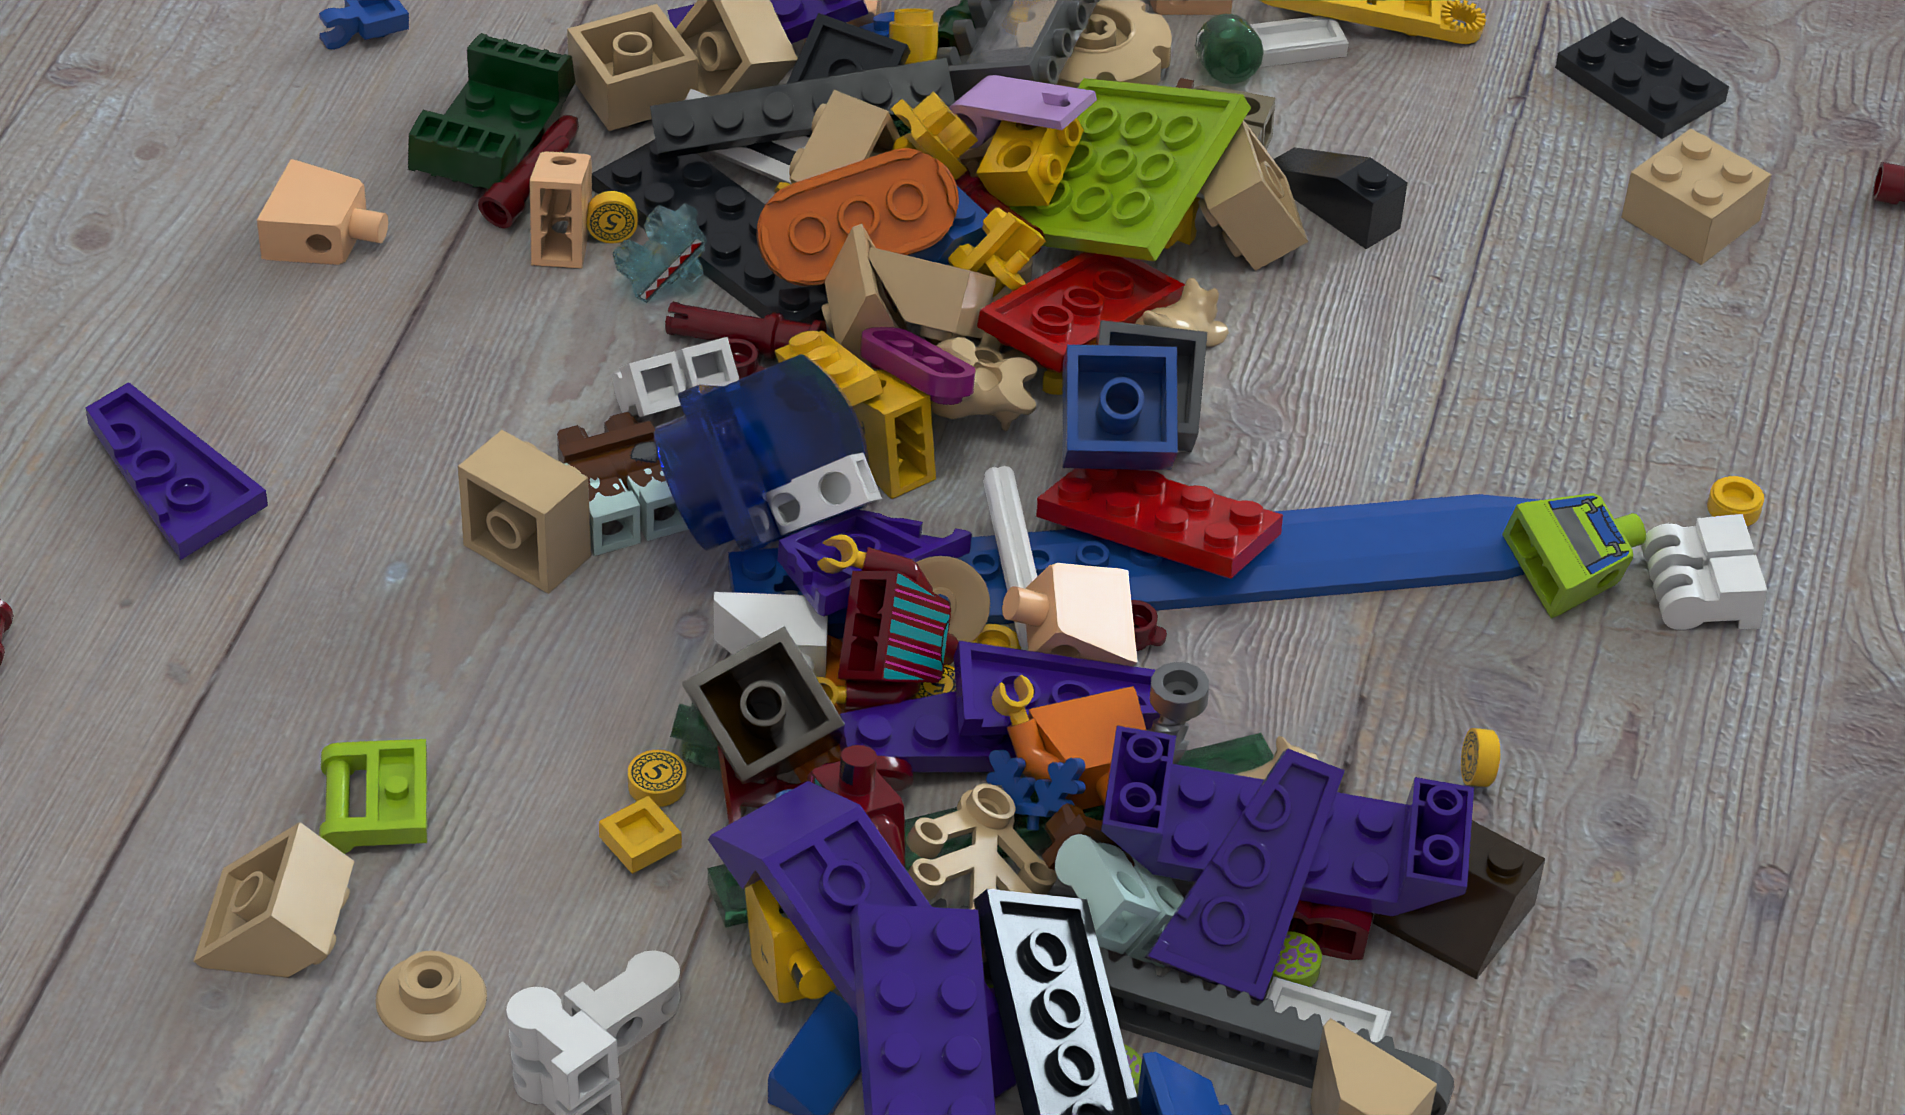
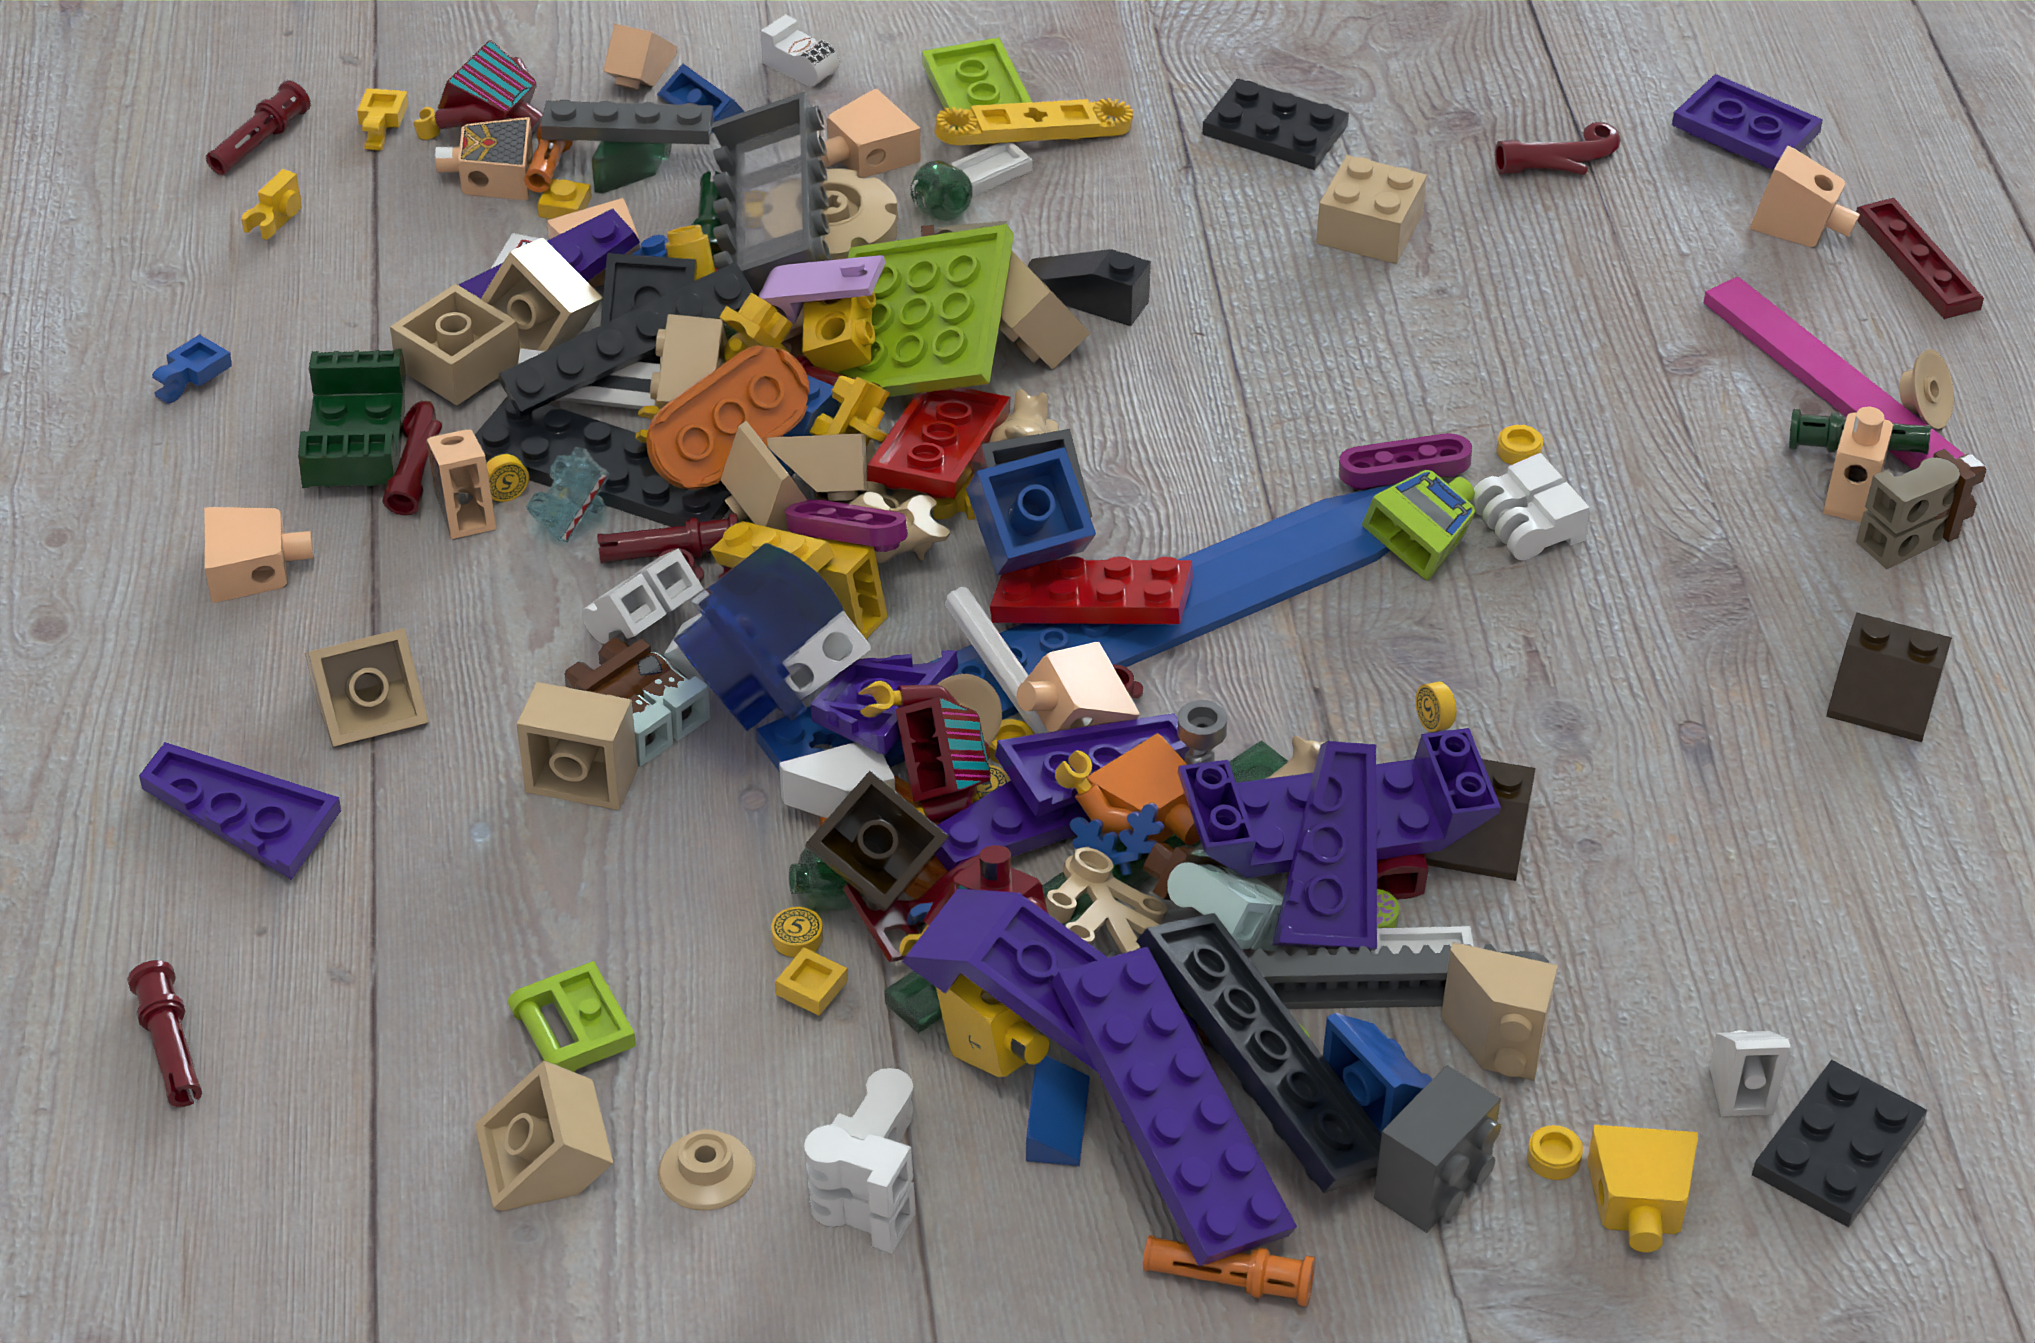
camera: 20 degrees left, 0 degrees up
(356, 387) = (367, 687): none -> tan slope
(1619, 481) = (1401, 459): none -> magenta plate

